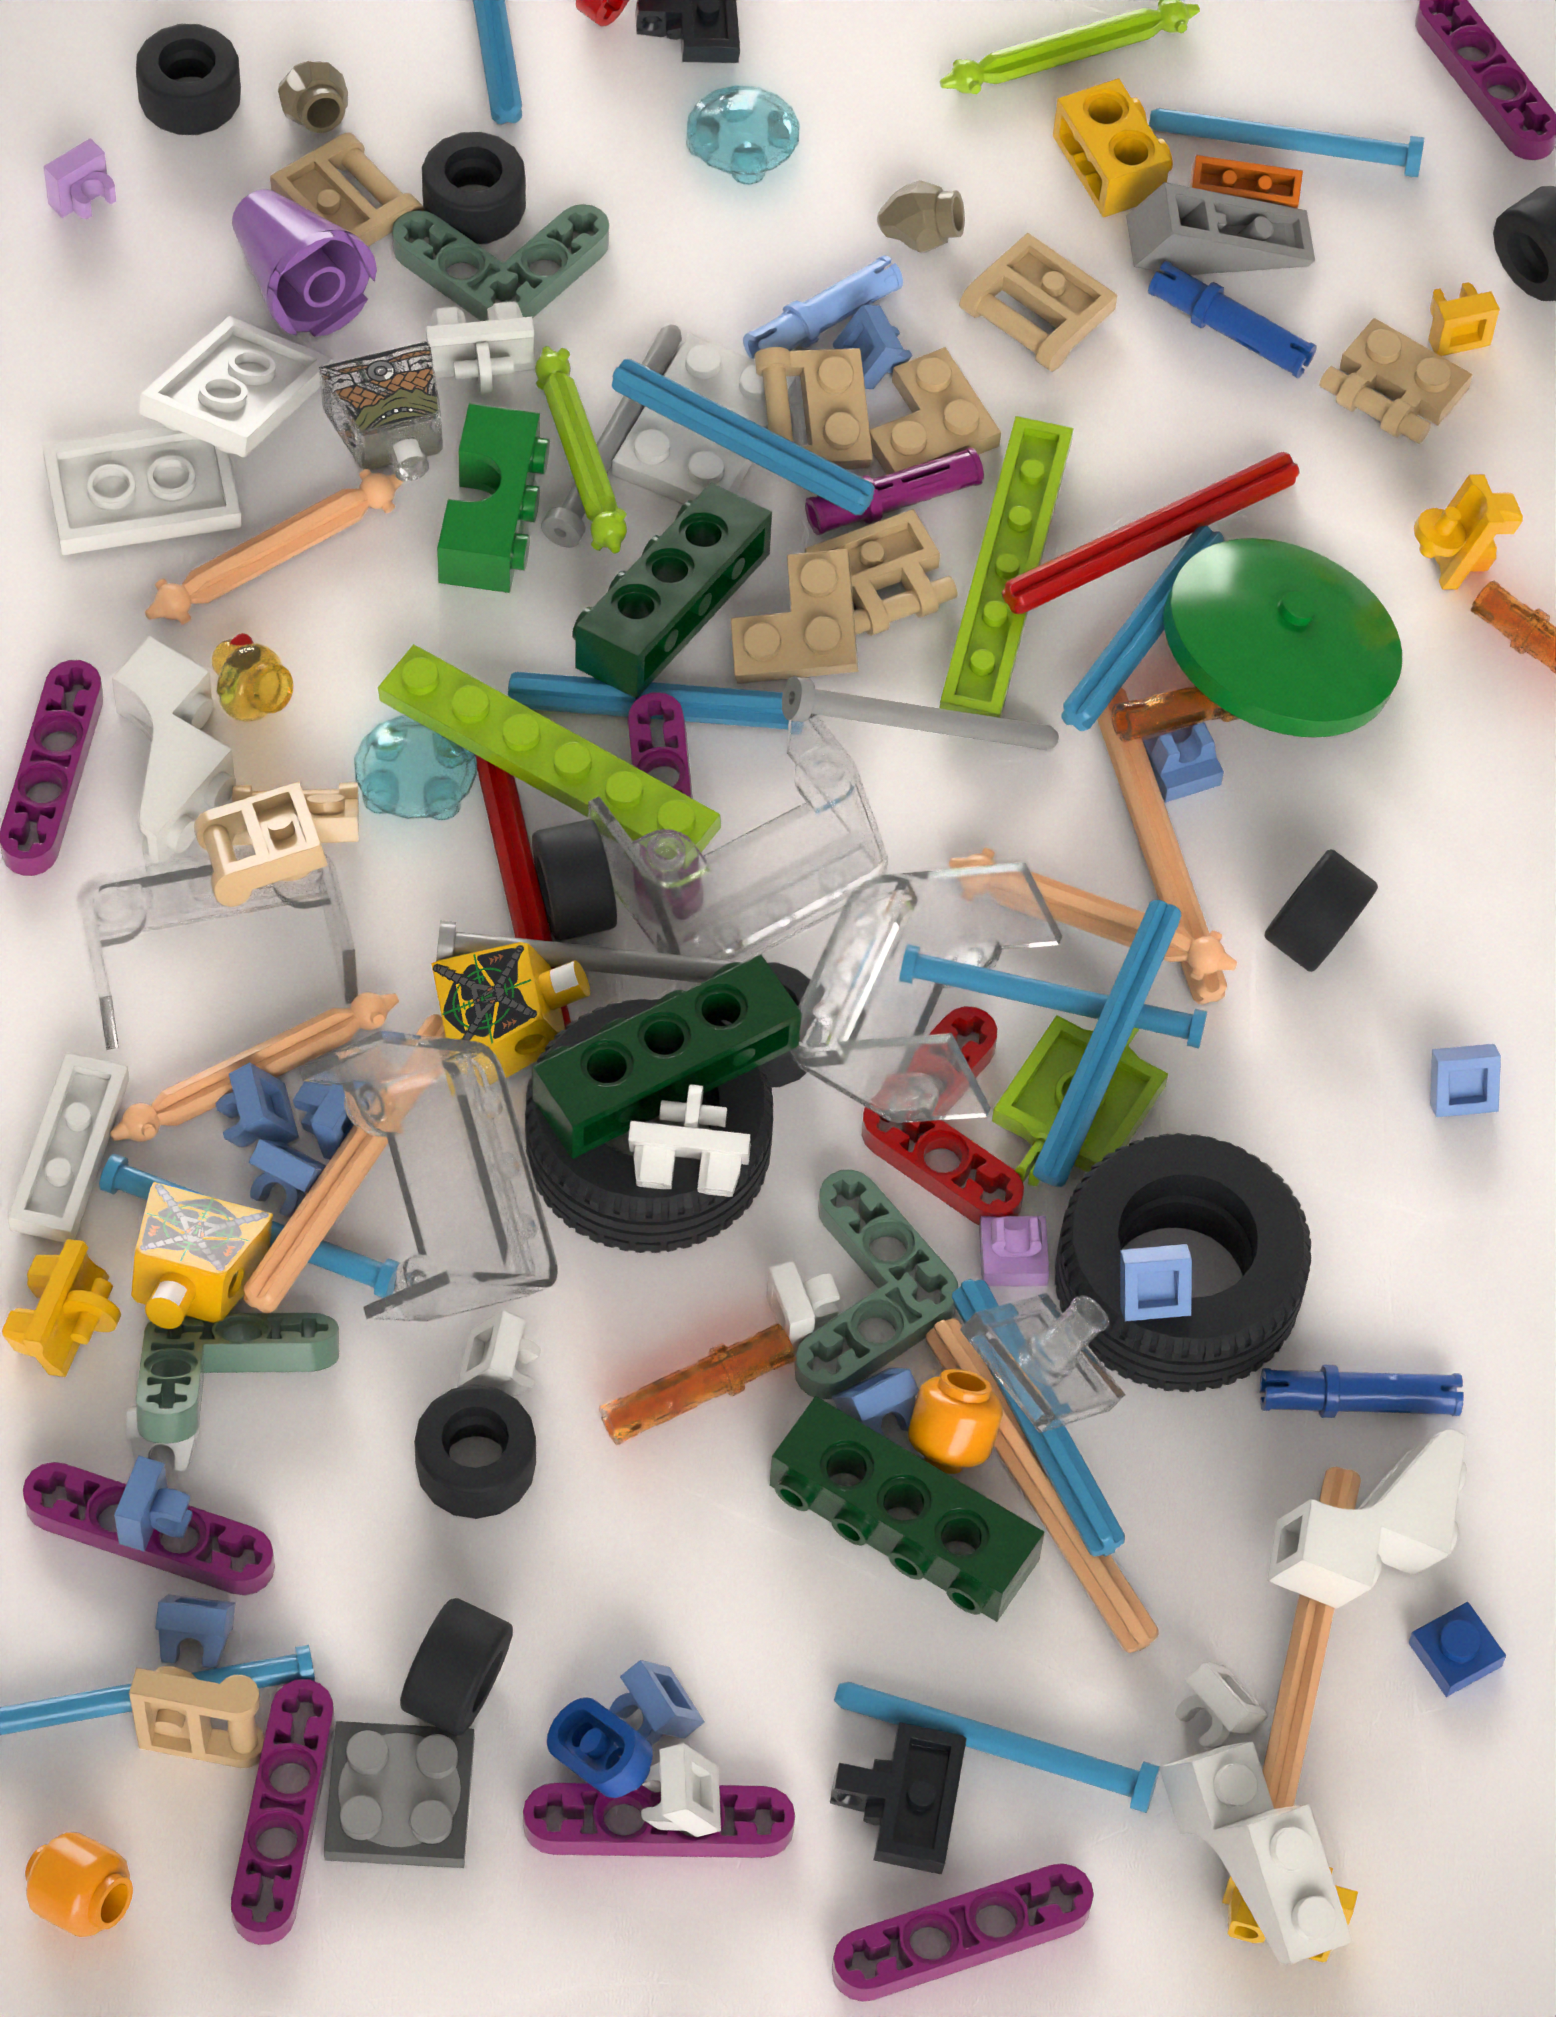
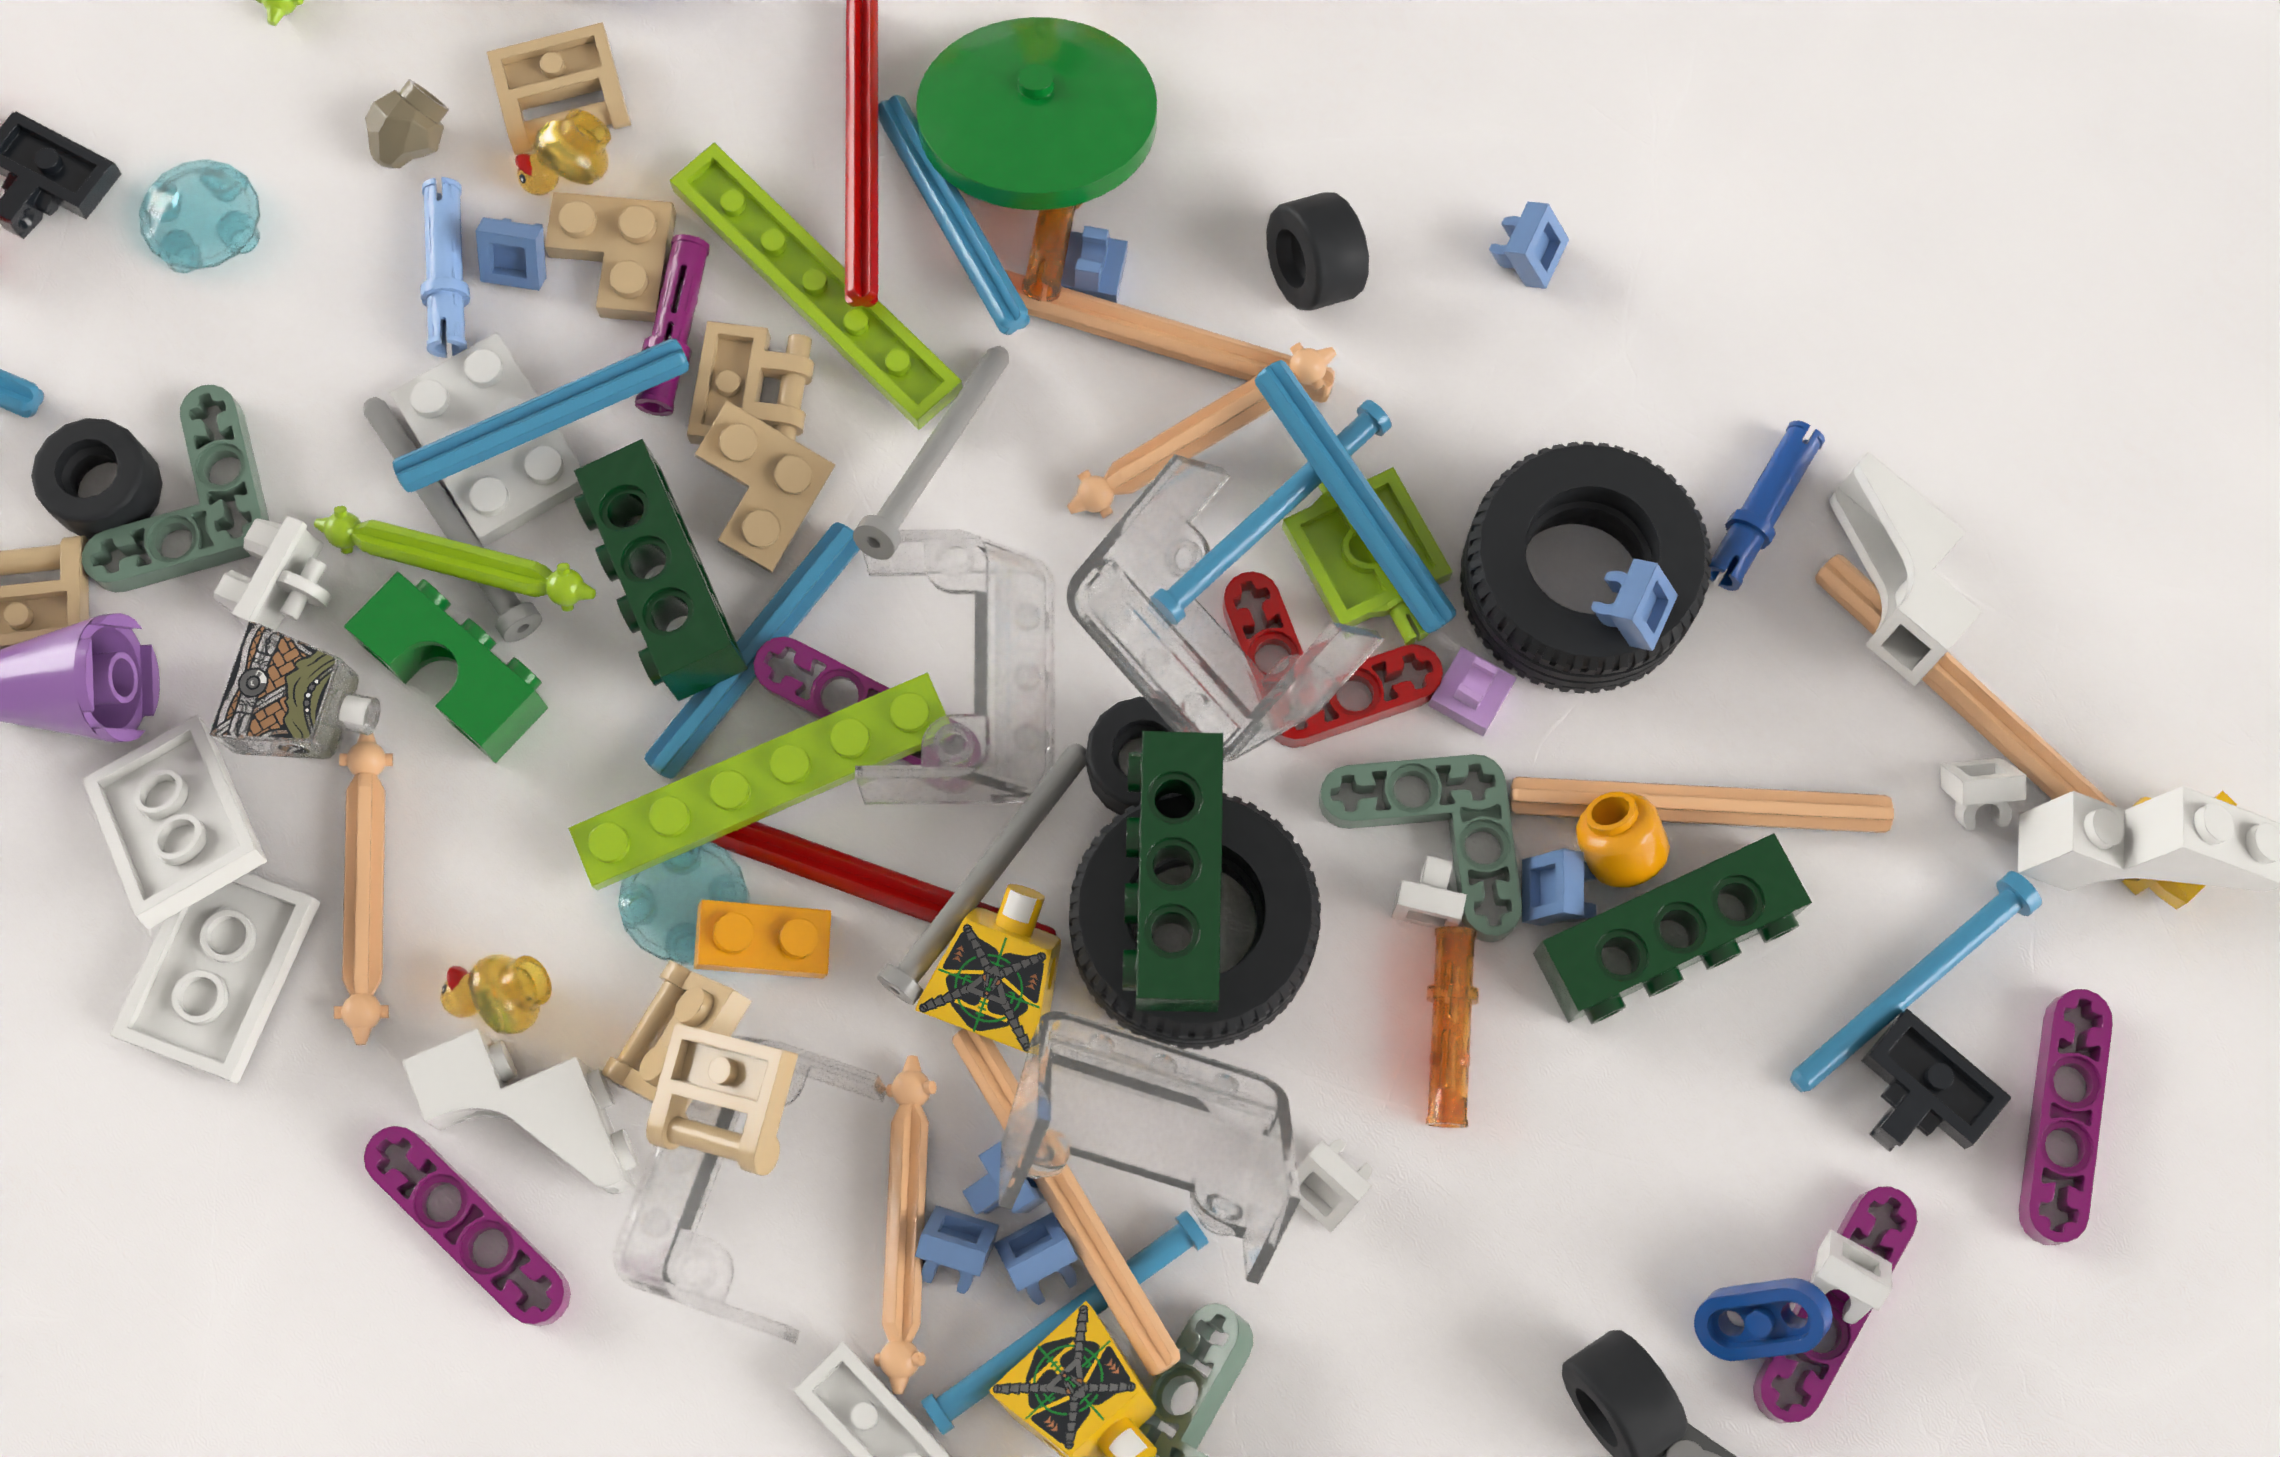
camera: 55 degrees left, 15 degrees up
(419, 835) = (762, 939): none -> light orange plate
(471, 1413) = (1454, 1248): black tyre -> none
(574, 879) = (907, 833): black tyre -> none
(659, 1144) = (1302, 886): white hips -> none
(660, 1698) = (1737, 1239): medium blue tile -> none
(831, 401) = (550, 320): tan plate -> none
(983, 332) = (565, 149): none -> clear yellow animal
(1046, 1358) = (1614, 732): clear tile -> none
(1055, 1452) = (1653, 771): dark azure axle -> none
(1457, 1649) = (2023, 578): blue plate -> none

